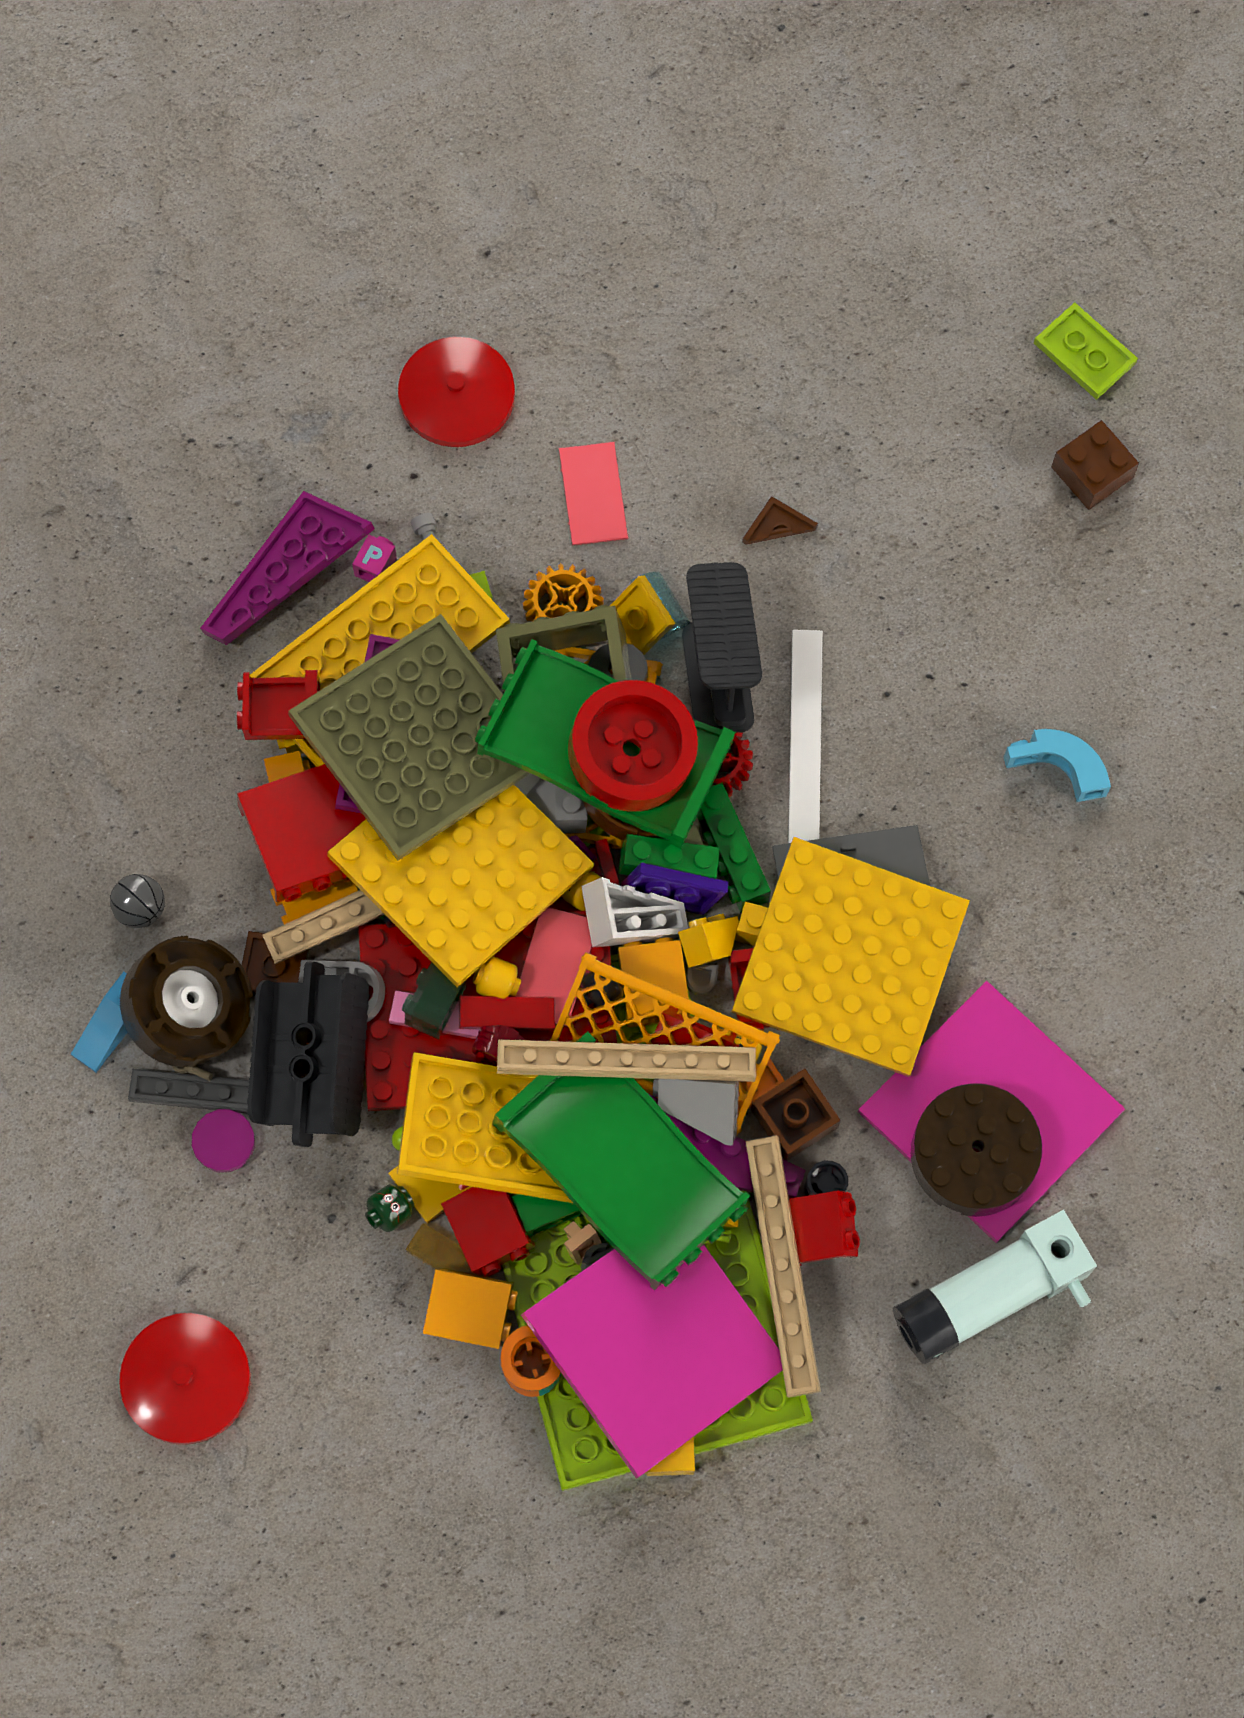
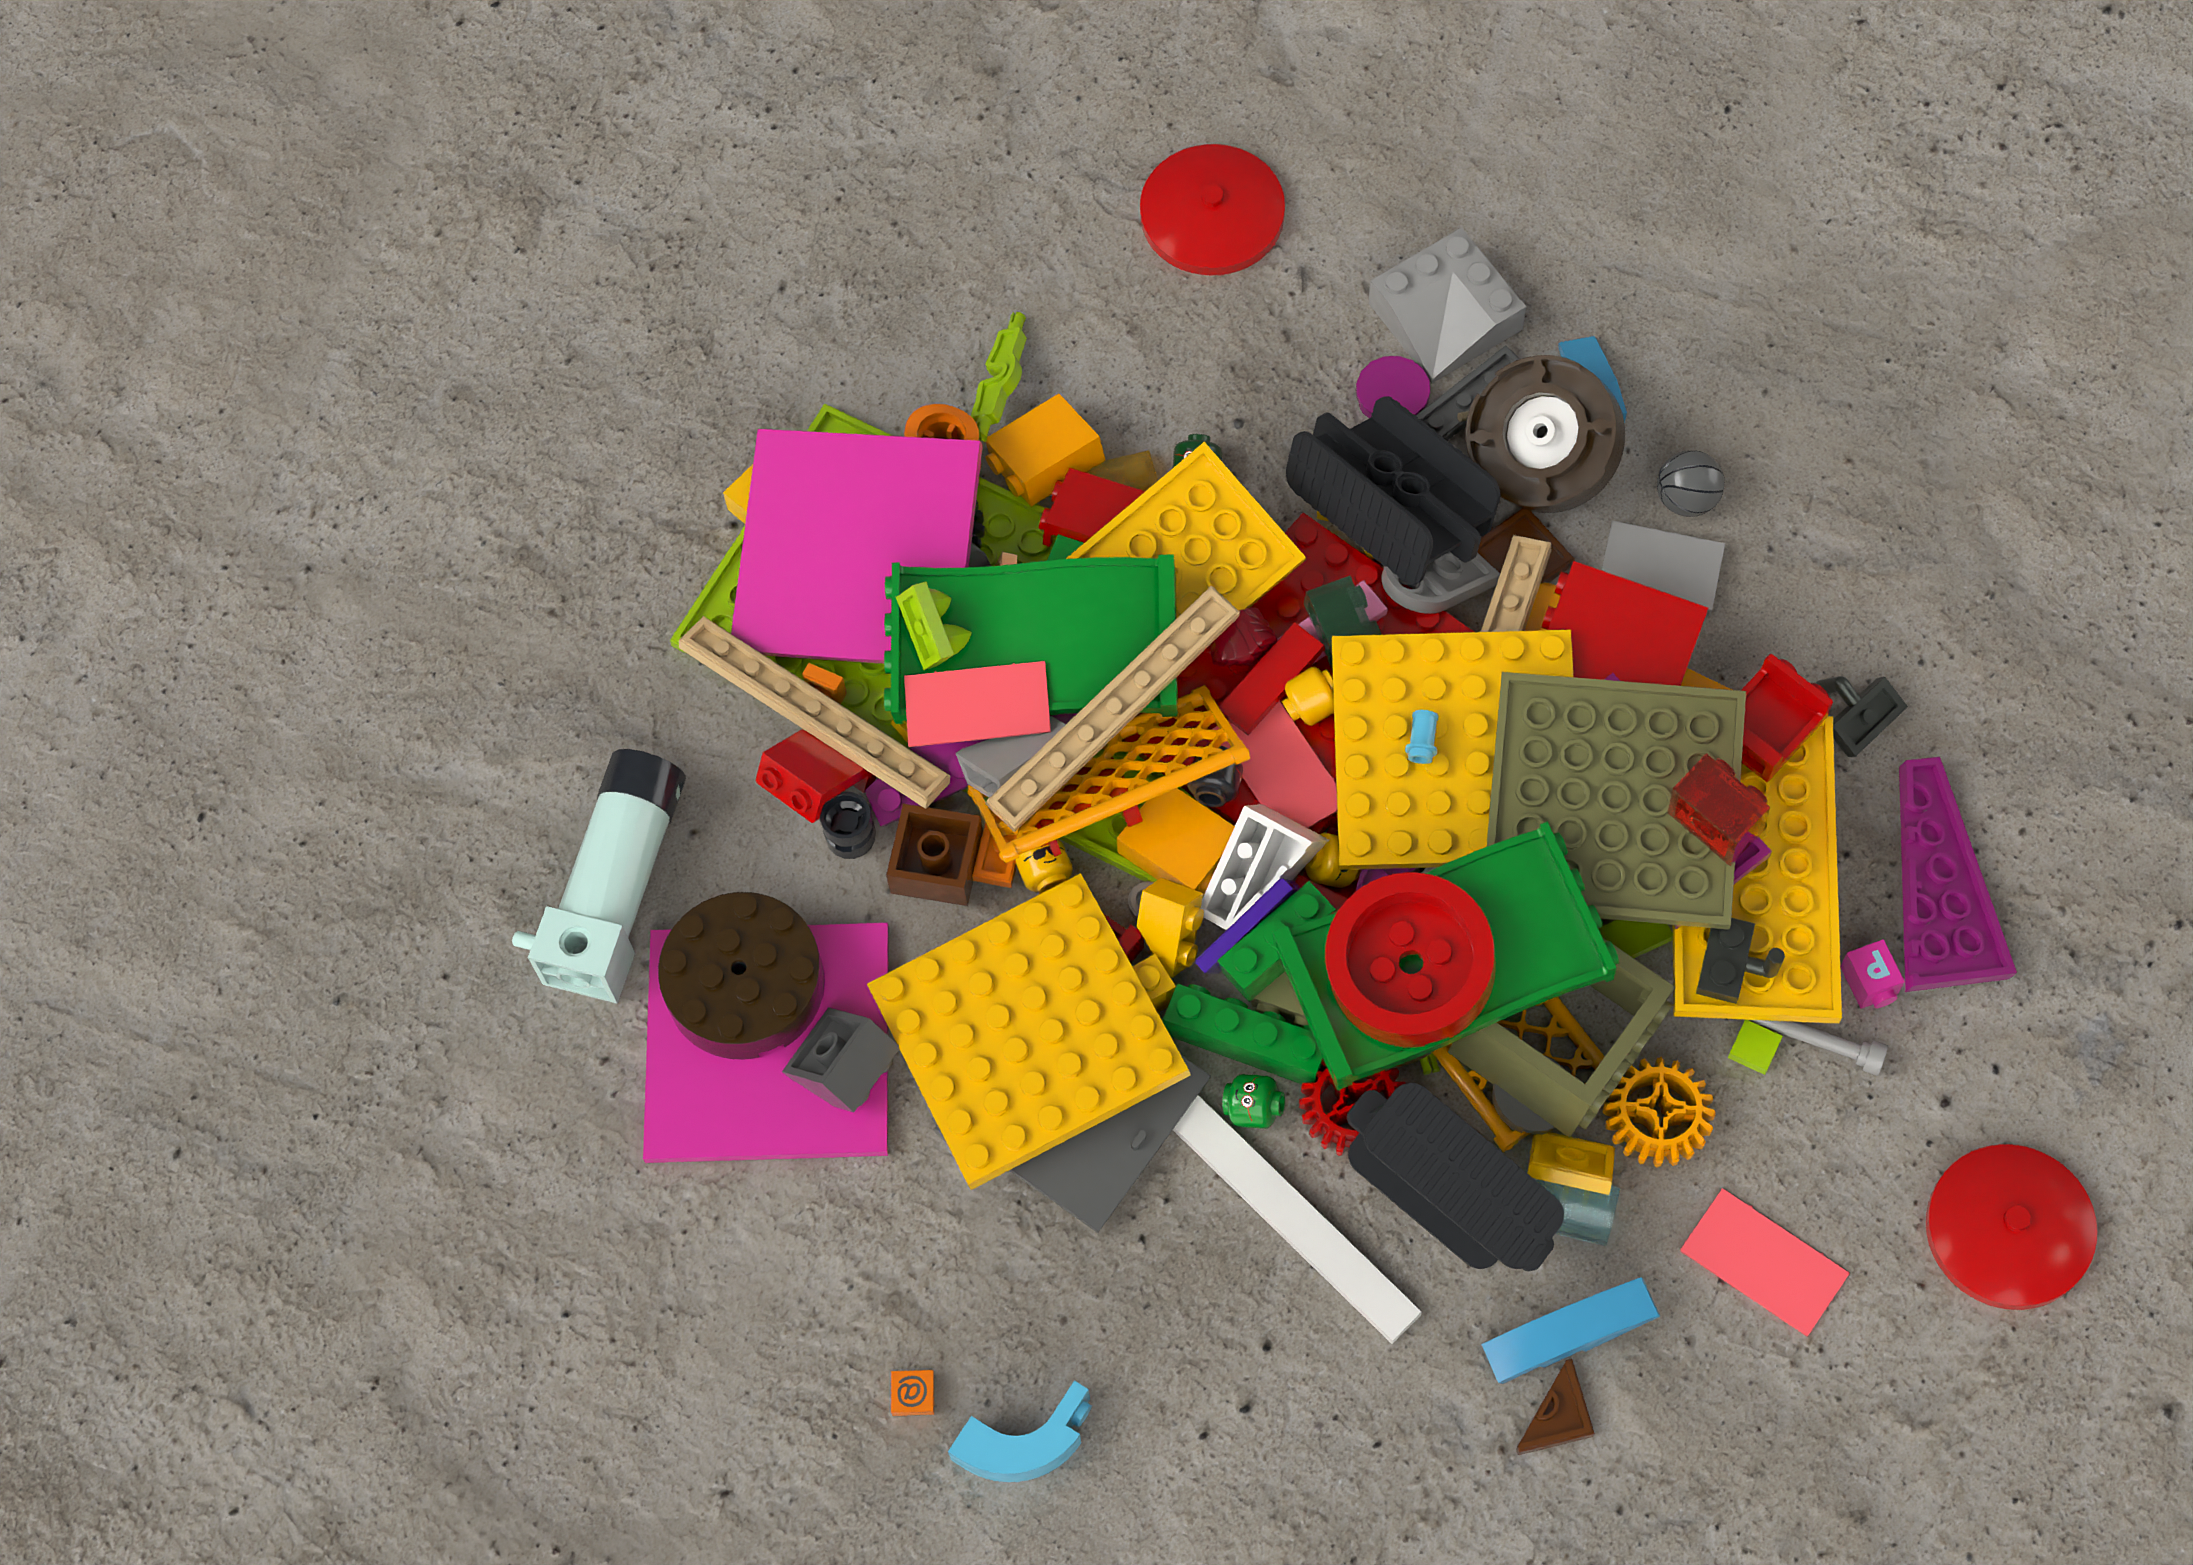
camera: 140 degrees right, 5 degrees down
(131, 1157) = (1447, 305): none -> light grey slope
(208, 687) = (1865, 714): none -> pearl dark grey plate
(208, 879) = (1665, 561): none -> light grey tile
(385, 654) = (1719, 808): none -> clear red brick
(427, 1399) = (1007, 372): none -> lime piece
(458, 611) = (1728, 959): none -> pearl dark grey plate
(478, 871) = (1421, 745): none -> medium azure pin
(681, 1216) = (922, 614): none -> lime tile
(695, 1152) = (977, 704): none -> coral window
(726, 545) = (1571, 1330): none -> dark azure slope
(754, 1284) = (826, 682): none -> orange tile
(764, 811) = (1253, 1101): none -> green head
(966, 1048) = (842, 1059): none -> dark grey slope
(1095, 844) = (912, 1392): none -> orange tile

